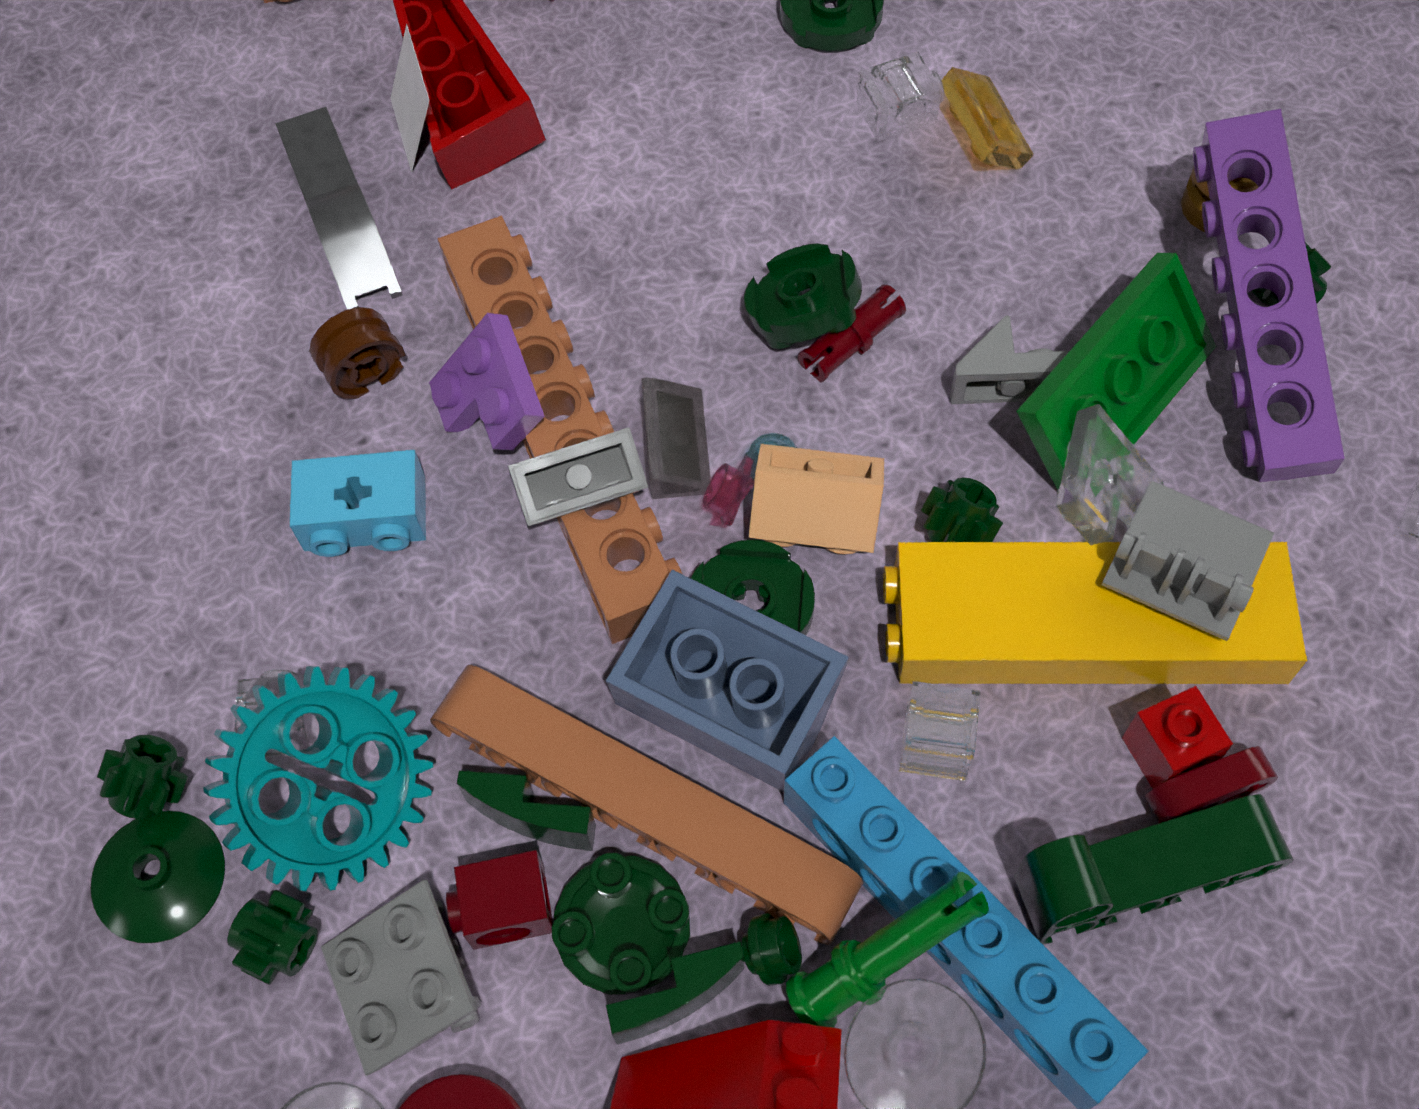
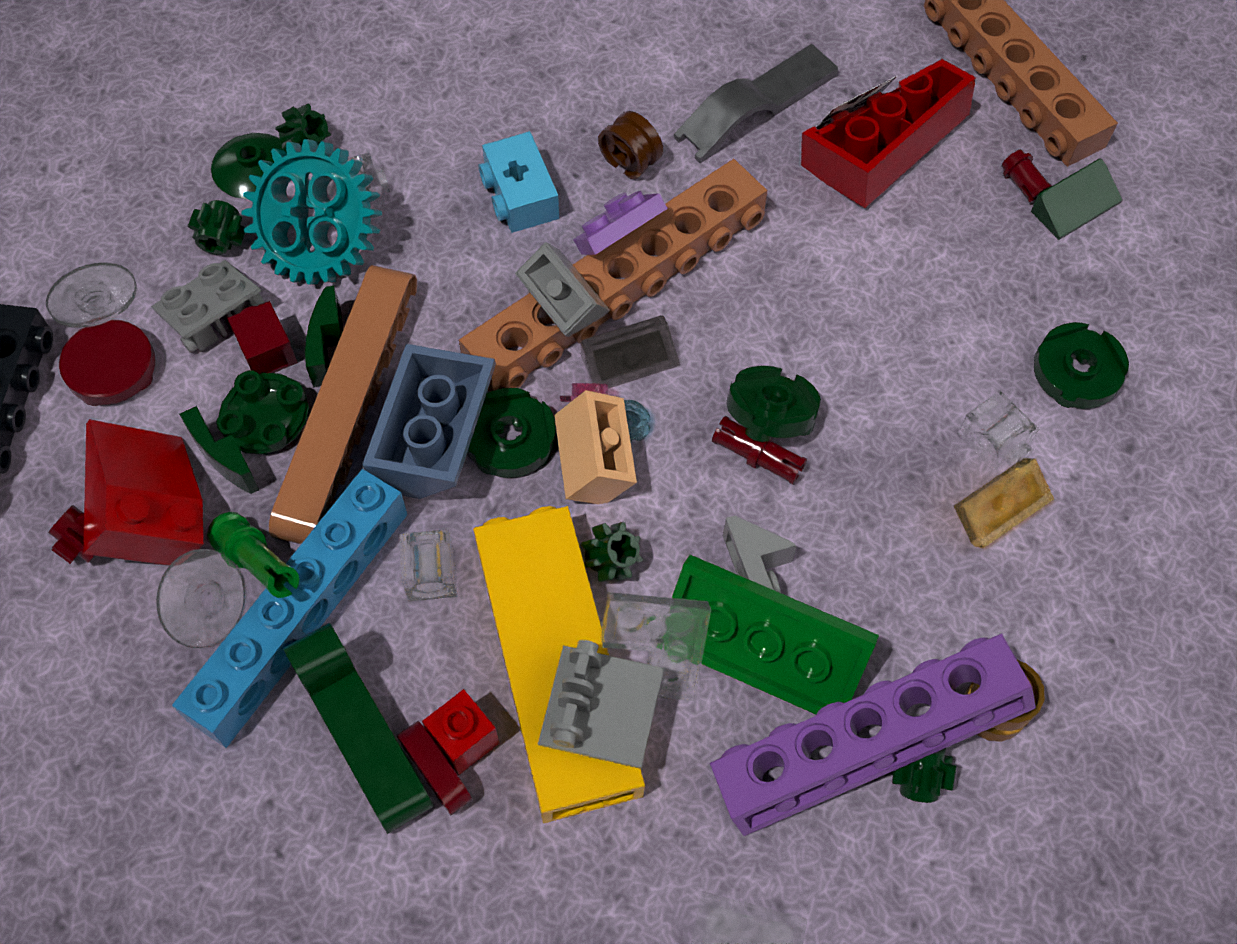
camera: 70 degrees right, 0 degrees up
(771, 948) = (256, 498): dark green plate -> none

